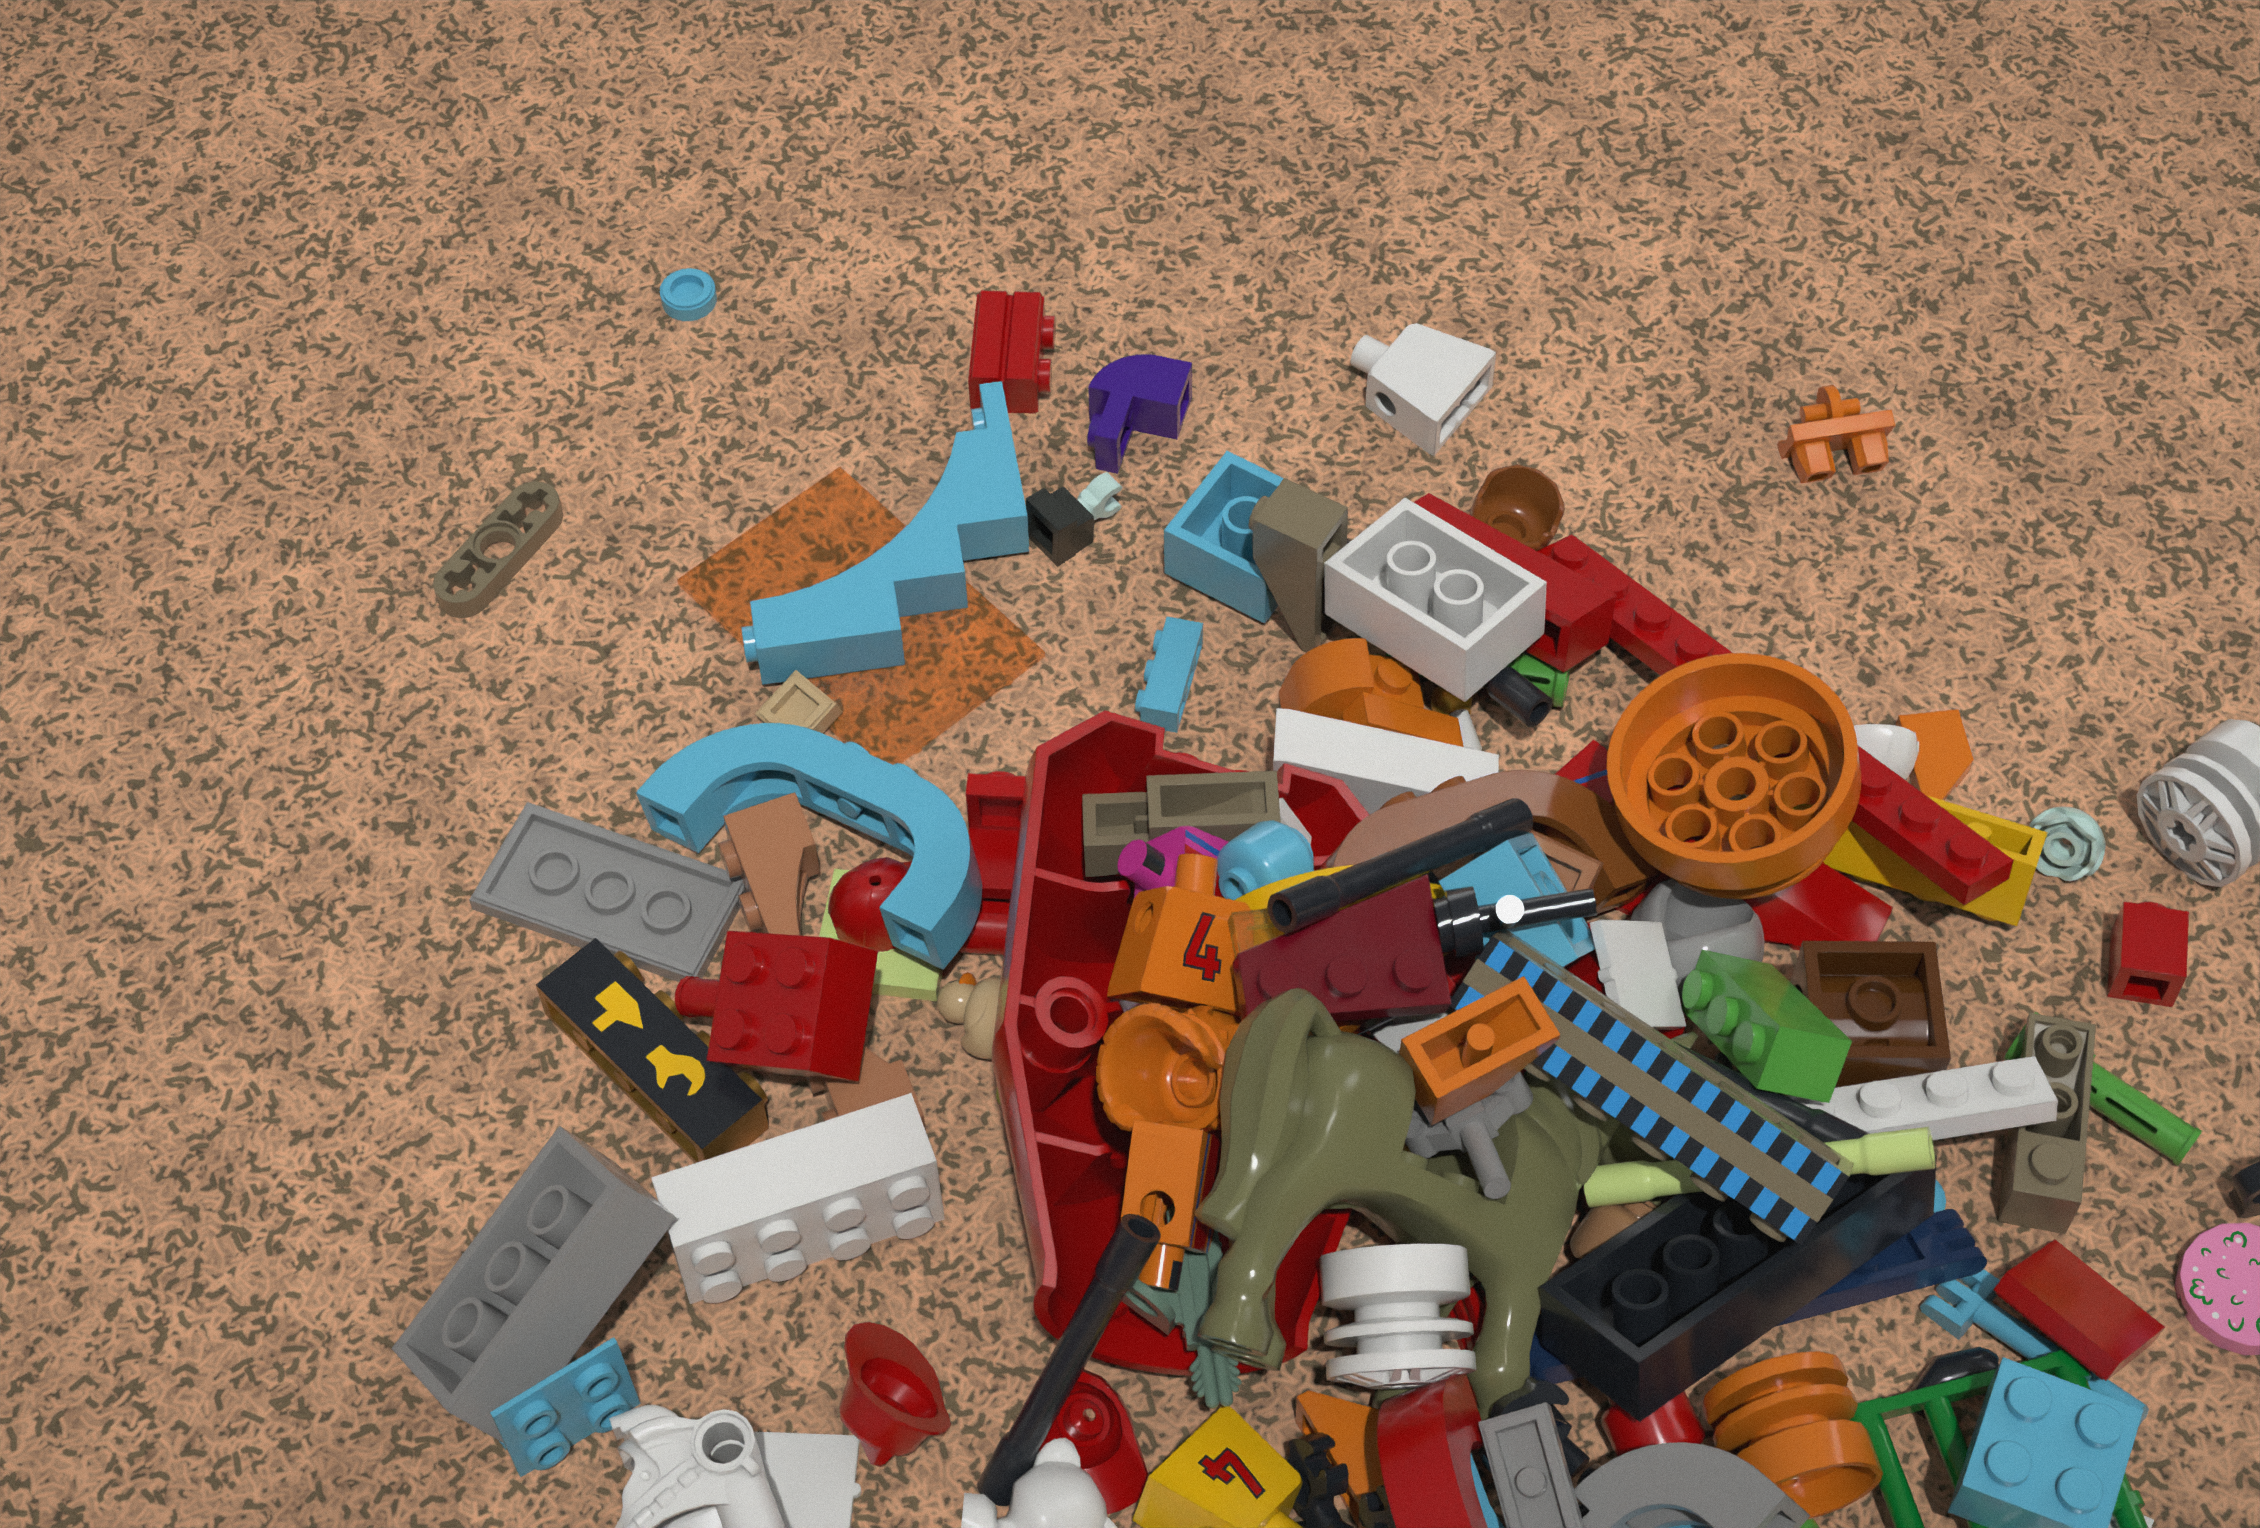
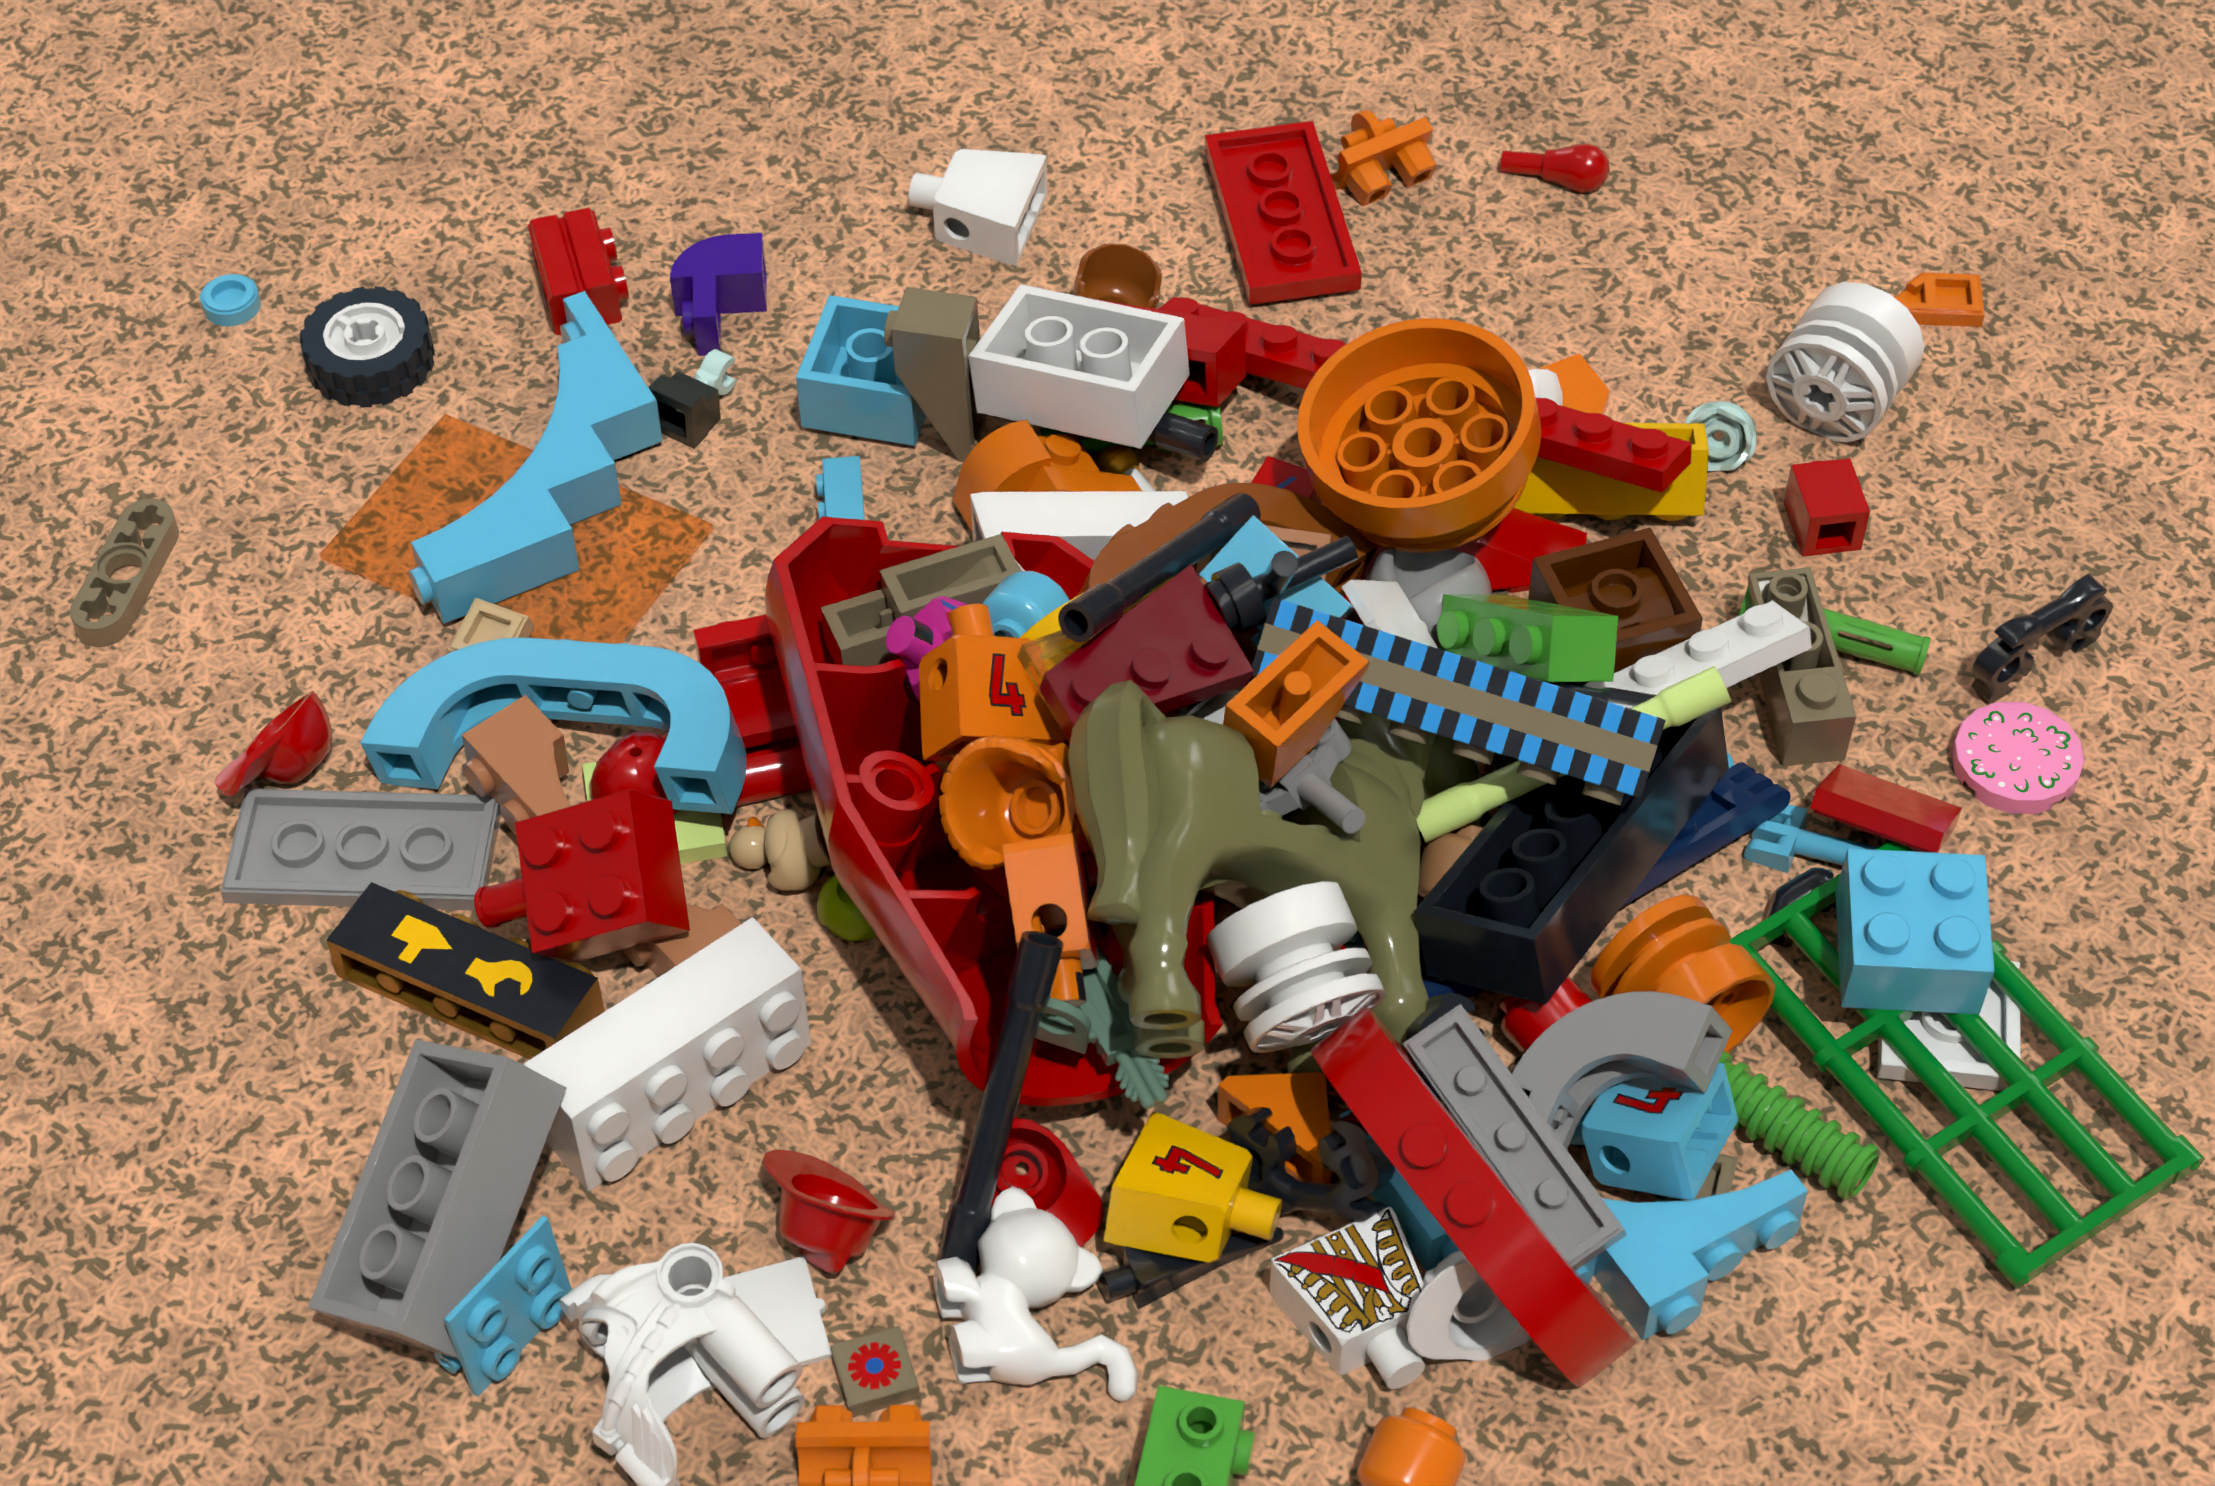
camera: 20 degrees left, 5 degrees down
(572, 773) = (283, 749): none -> red cap
(791, 378) = (367, 346): none -> black wheel
(1714, 471) = (1282, 212): none -> red plate
(2033, 501) = (1574, 167): none -> red piece

